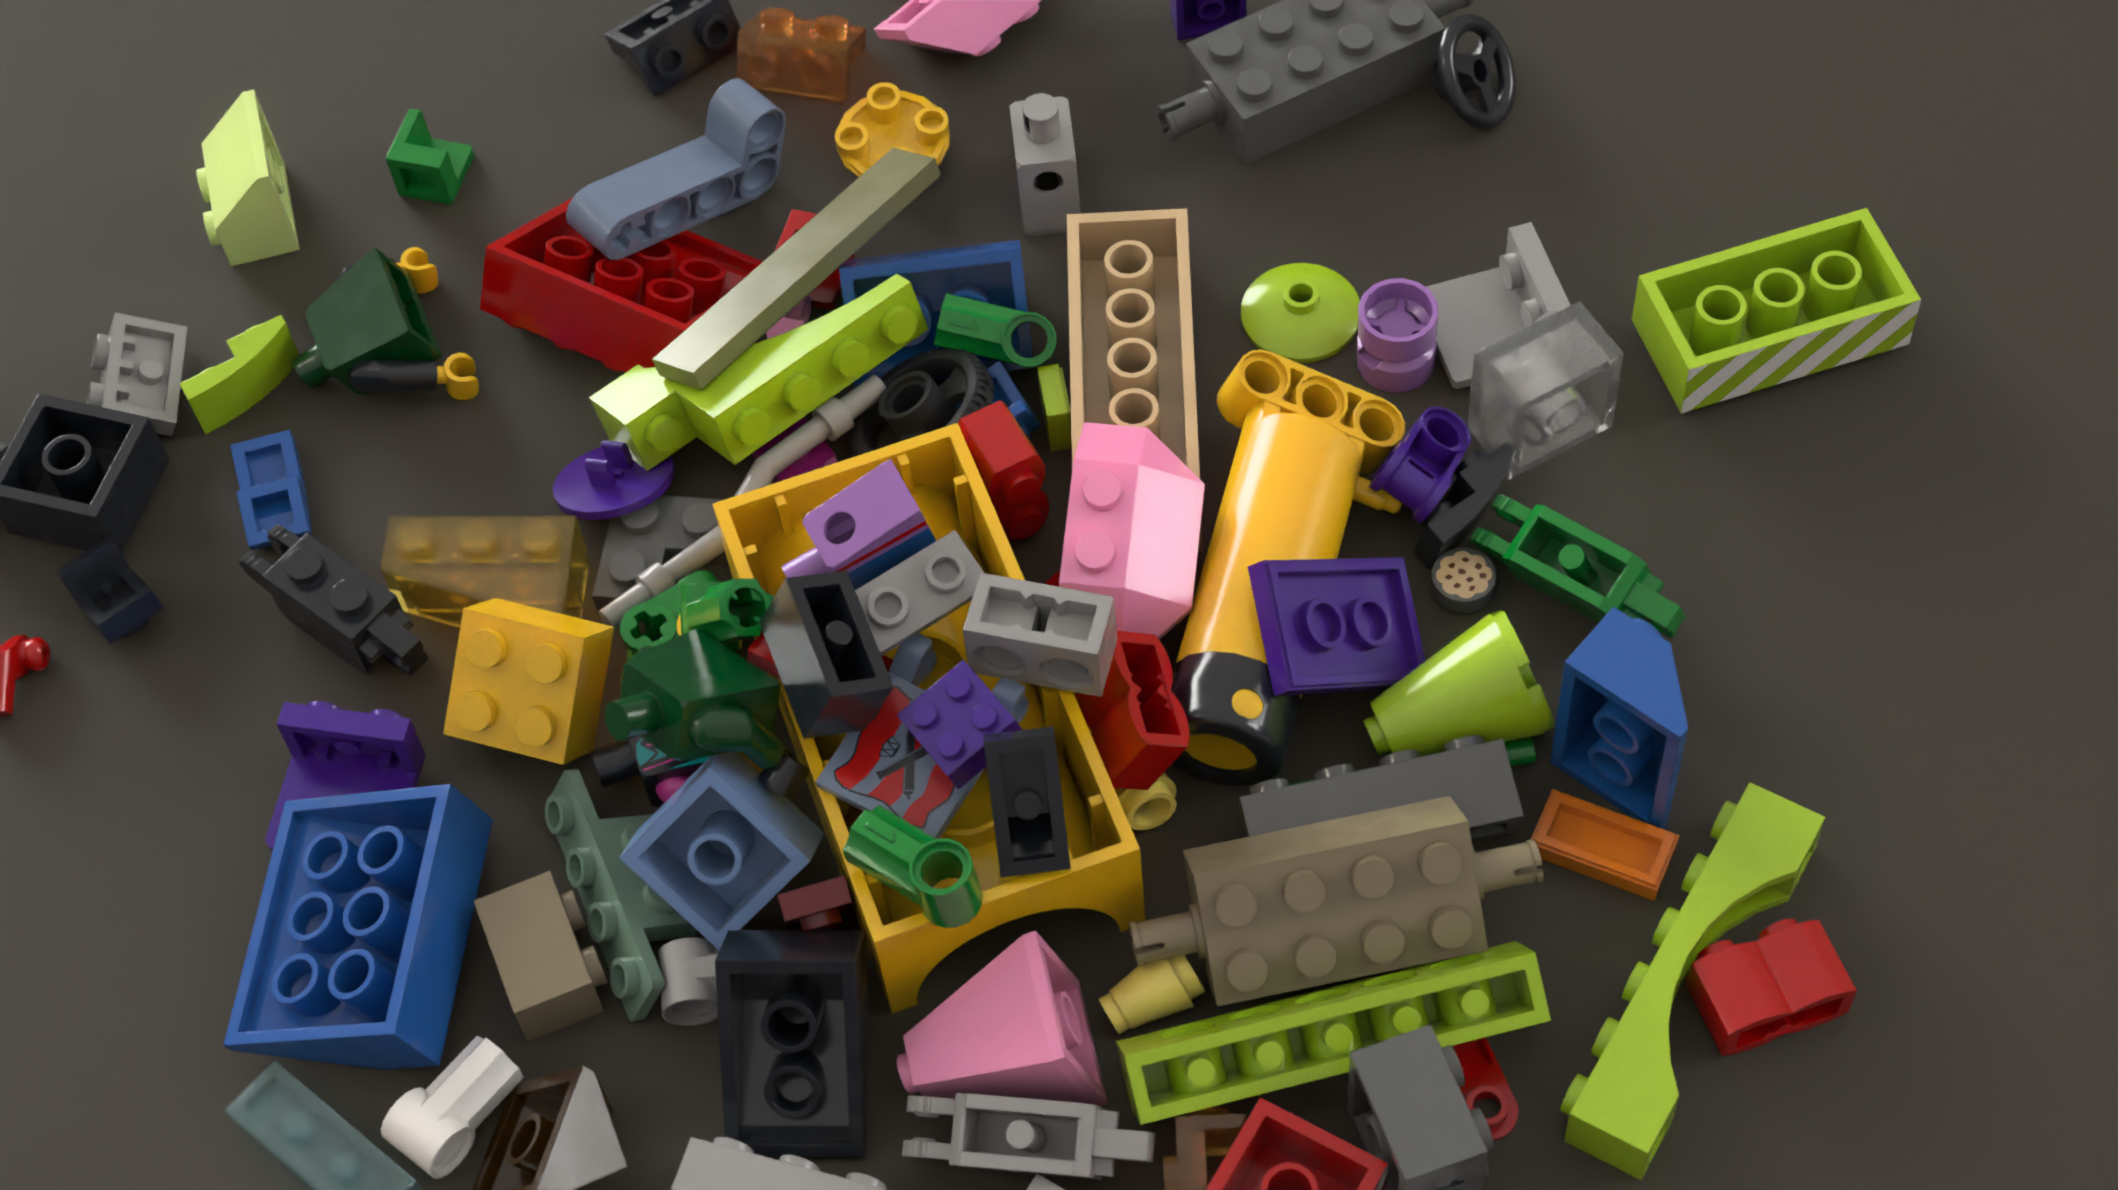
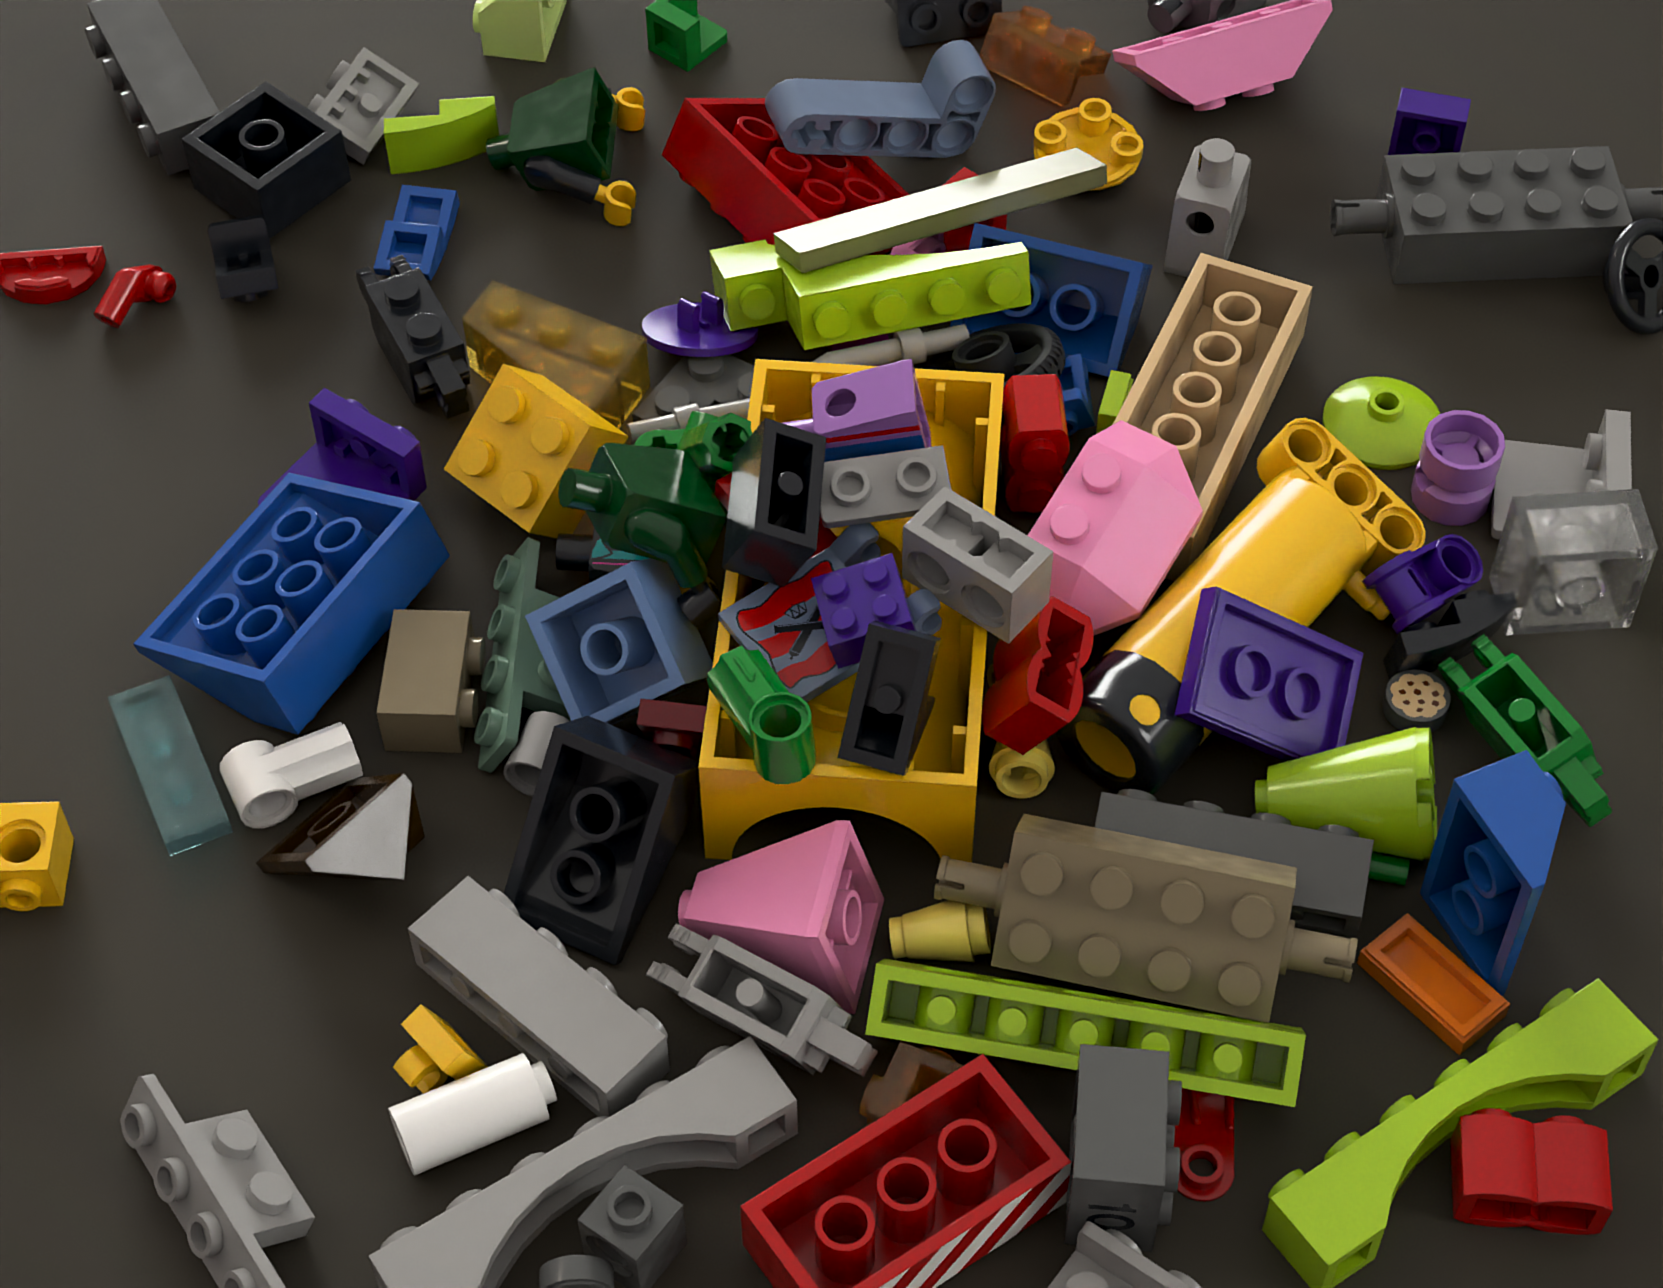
camera: 20 degrees right, 5 degrees down
(989, 330) = (1086, 326): green piece -> none

